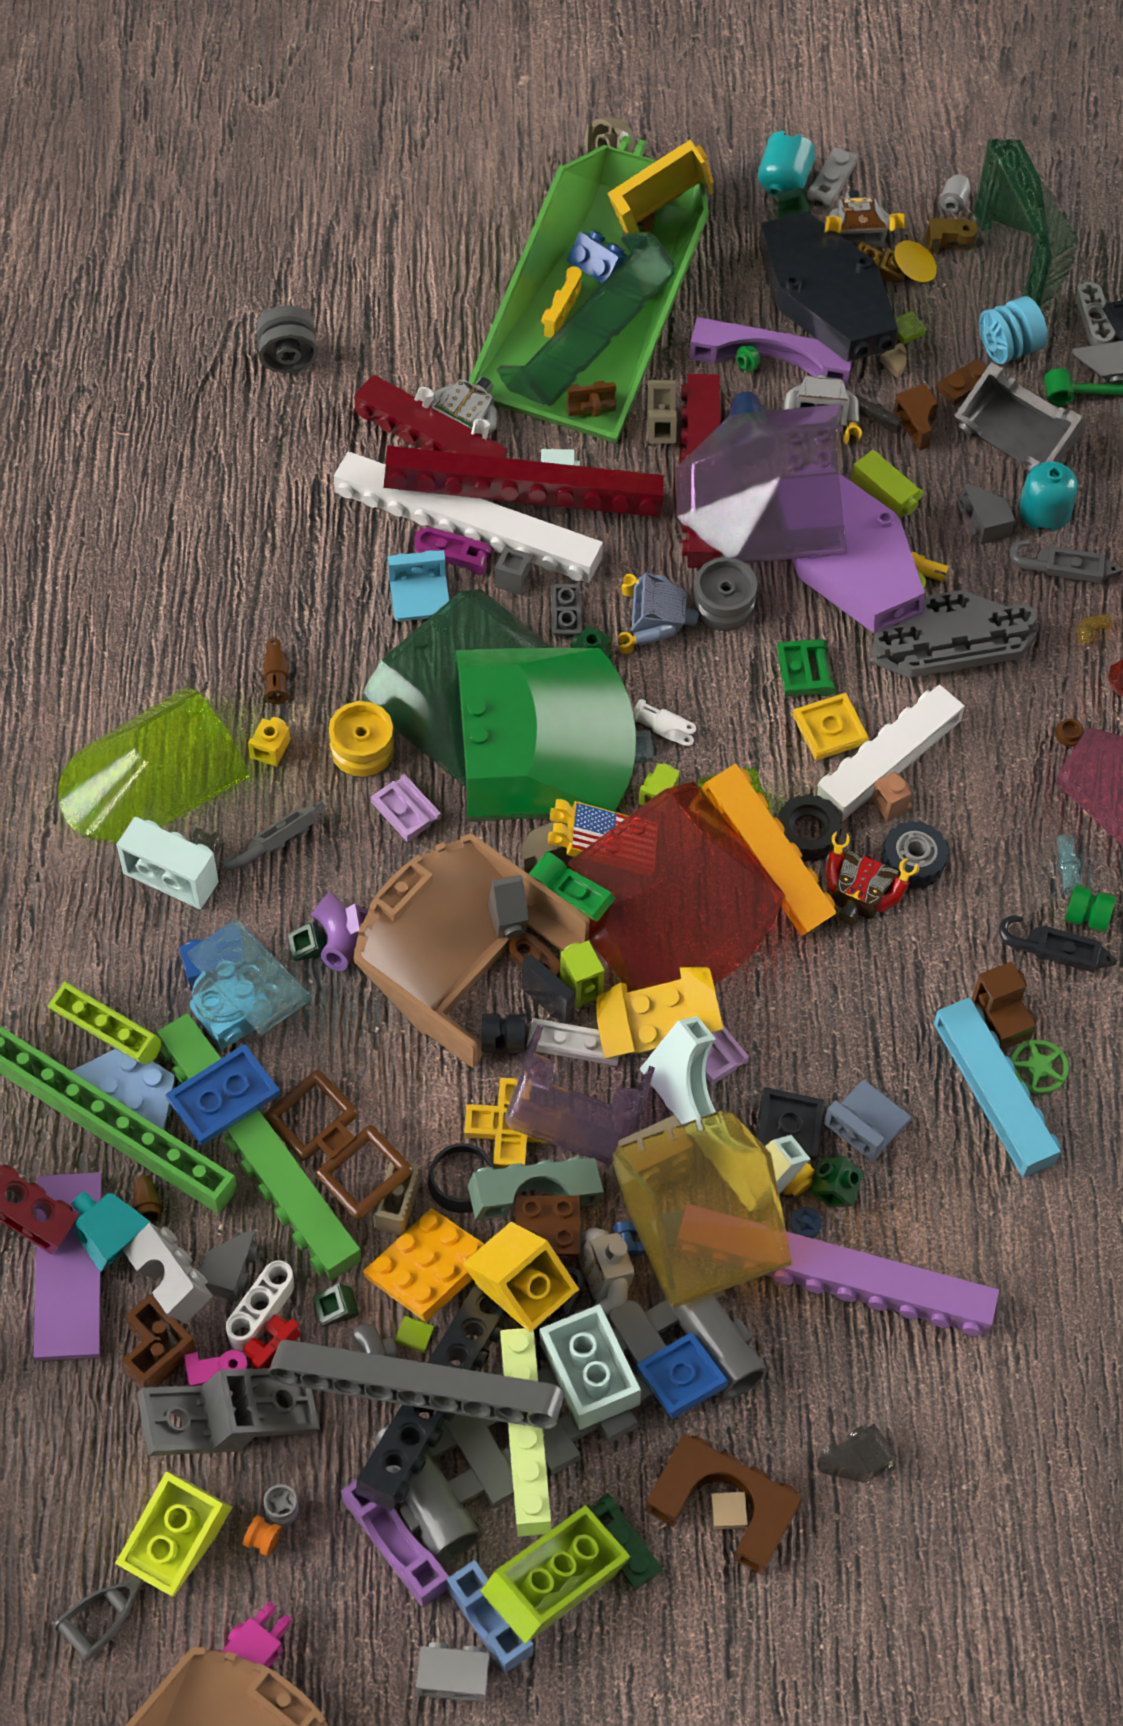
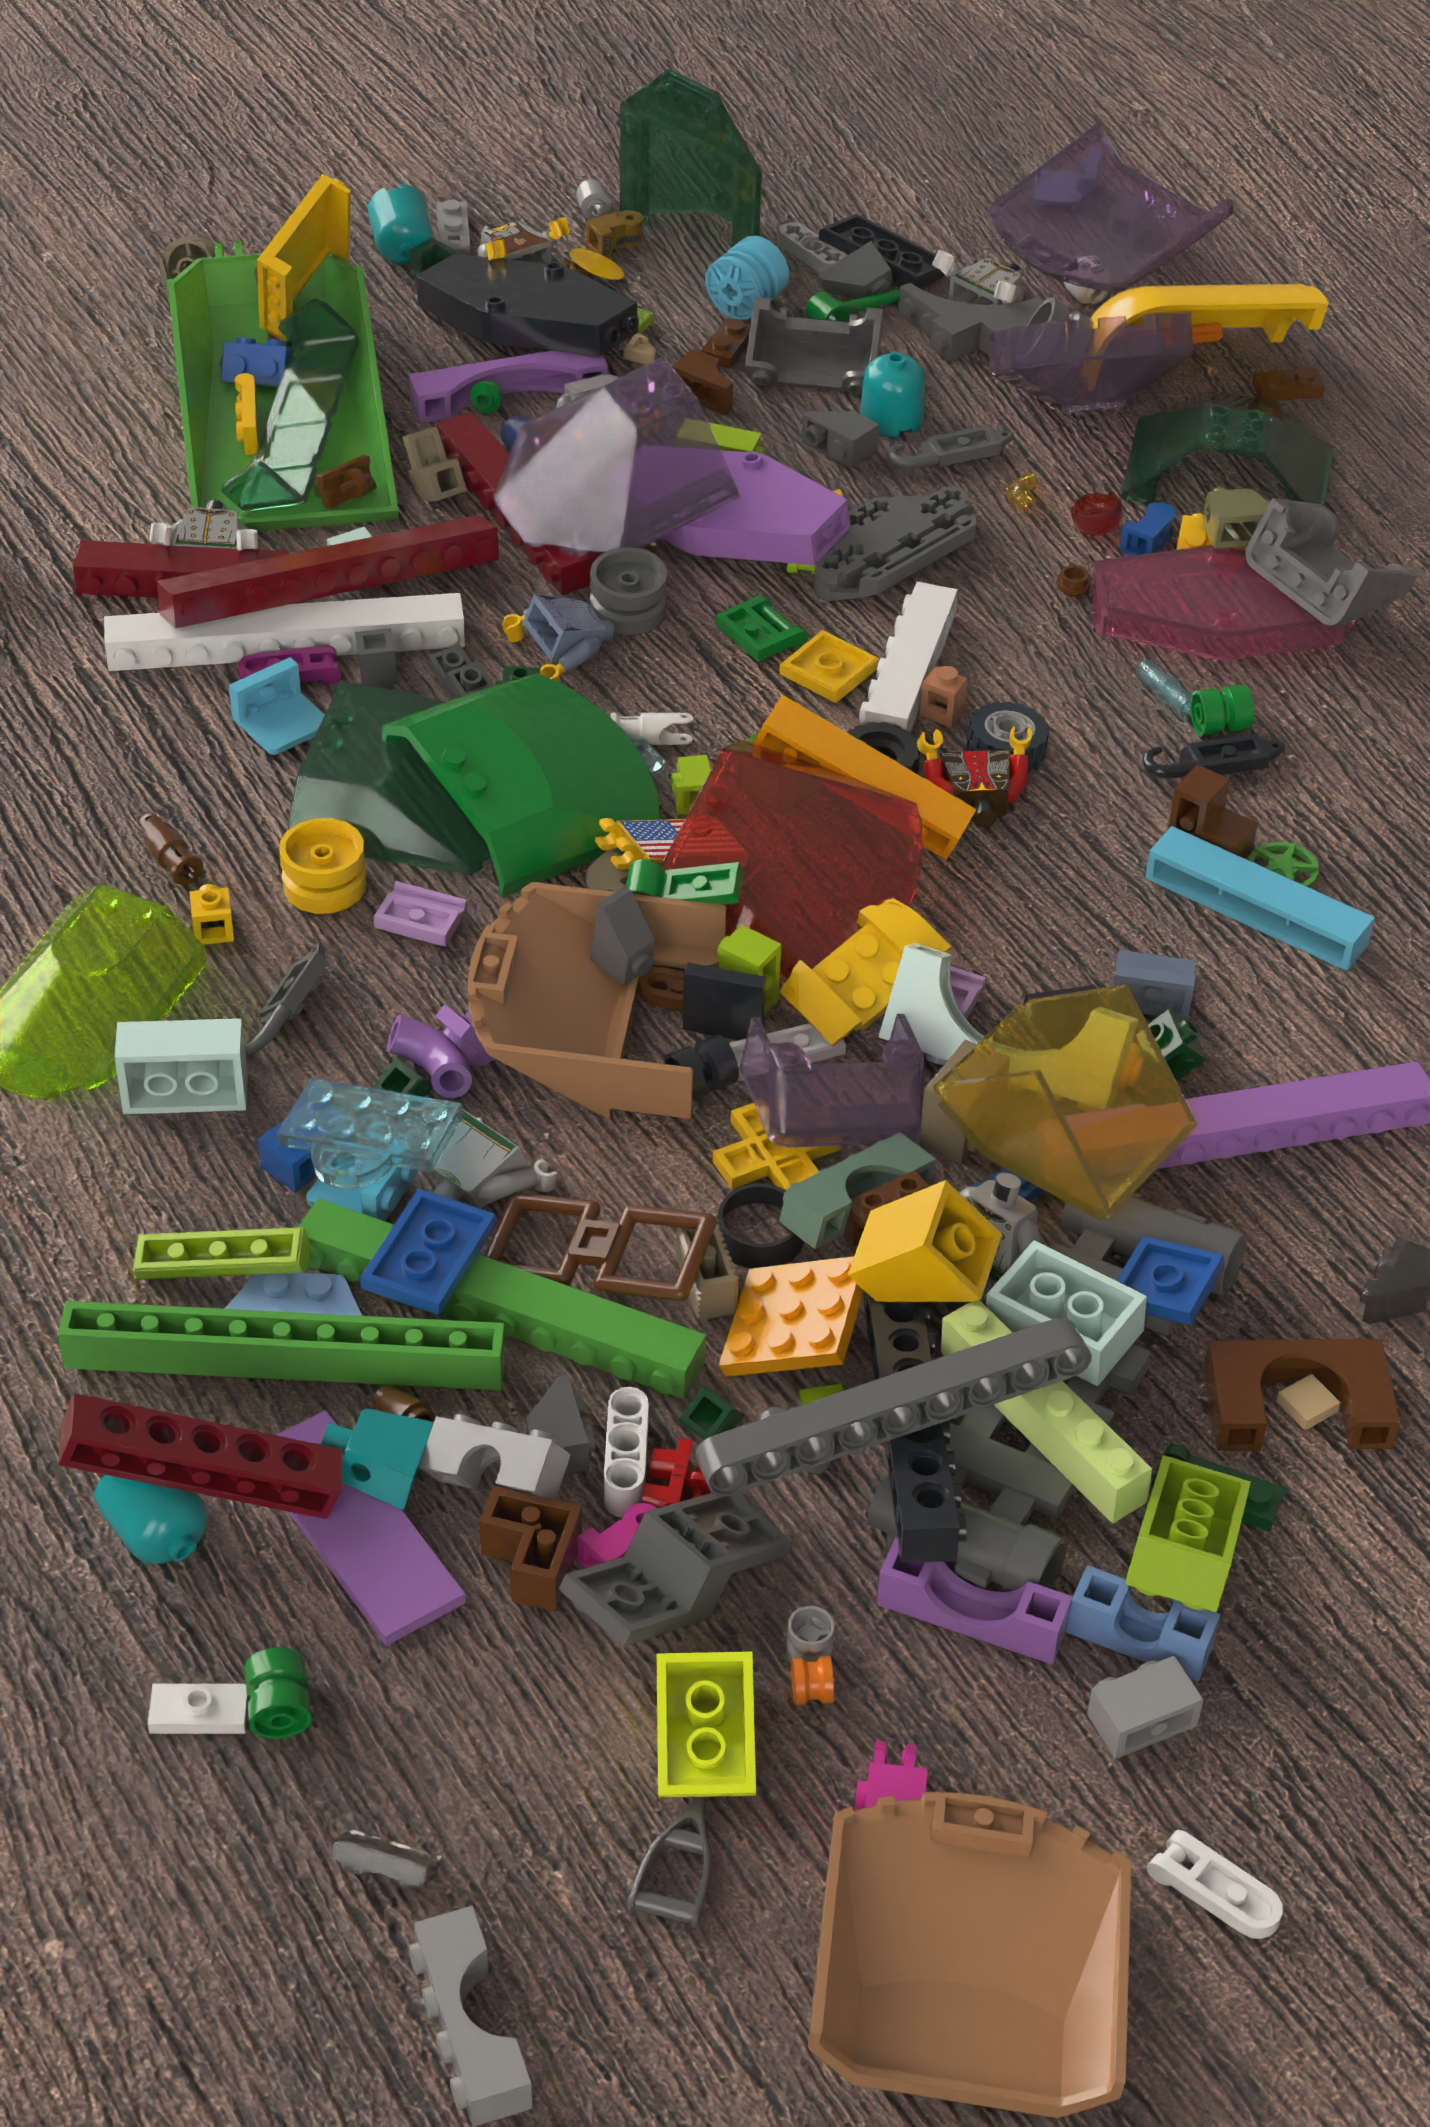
camera: 30 degrees left, 15 degrees down
(309, 1037) = (486, 1166): none -> light grey torso

